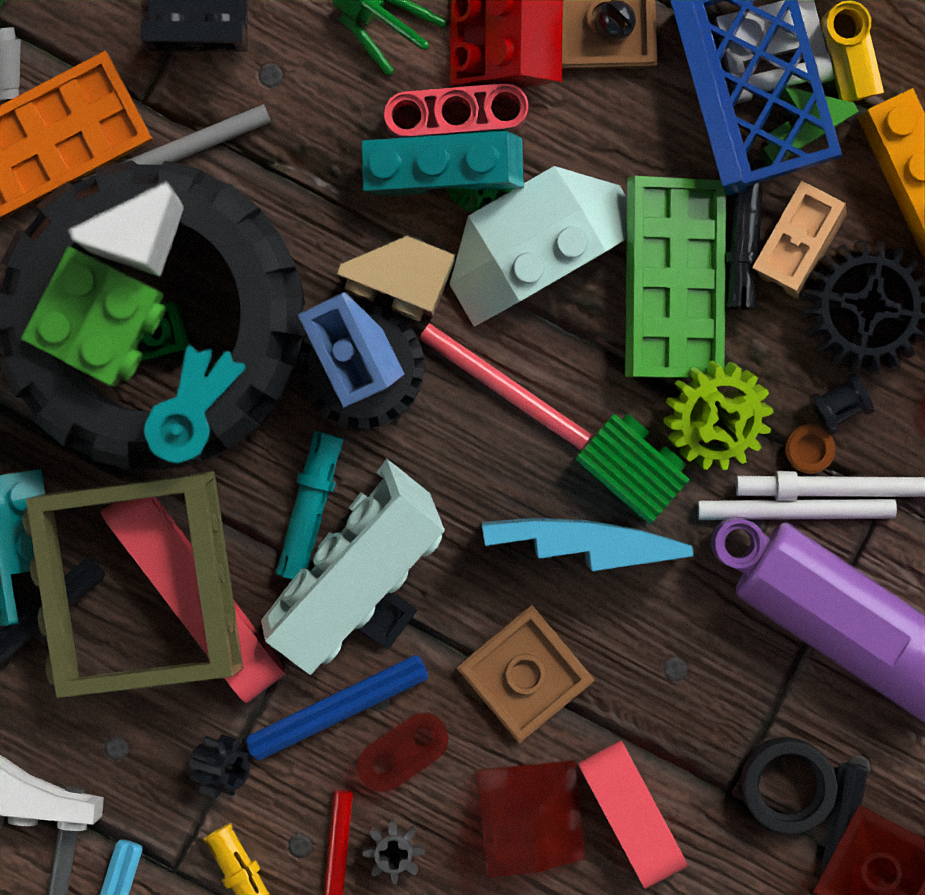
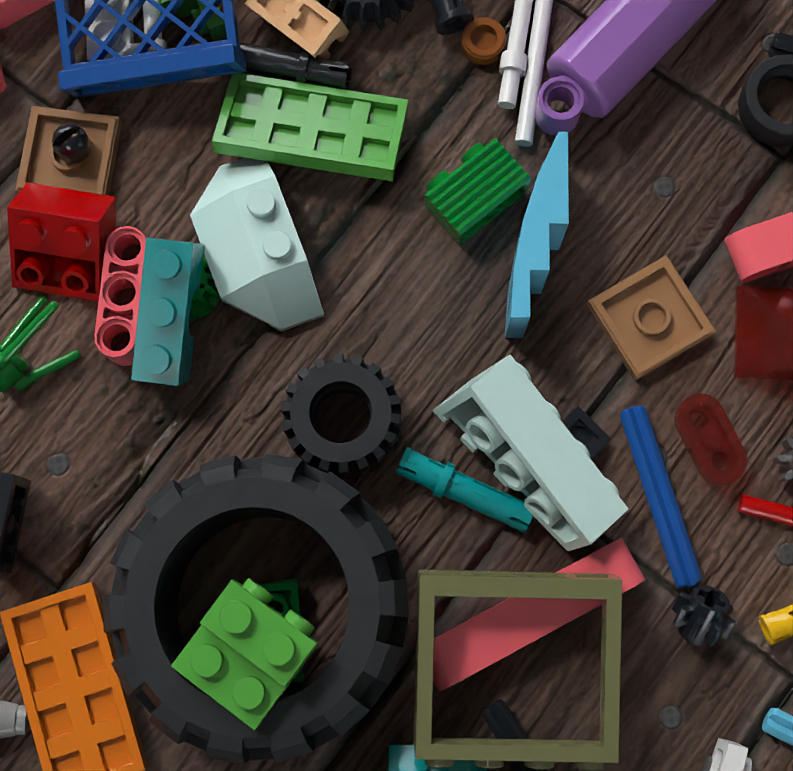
camera: 75 degrees left, 10 degrees down
(136, 231) = (167, 594): white slope -> none
(179, 425) = (368, 584): teal piece -> none
(205, 138) = (101, 525): light grey bar -> none
(351, 348) = (322, 411): medium blue slope -> none
(402, 272) = (263, 362): tan slope -> none
(504, 386) = (384, 294): coral bar -> none
(697, 414) = (441, 107): lime gear -> none

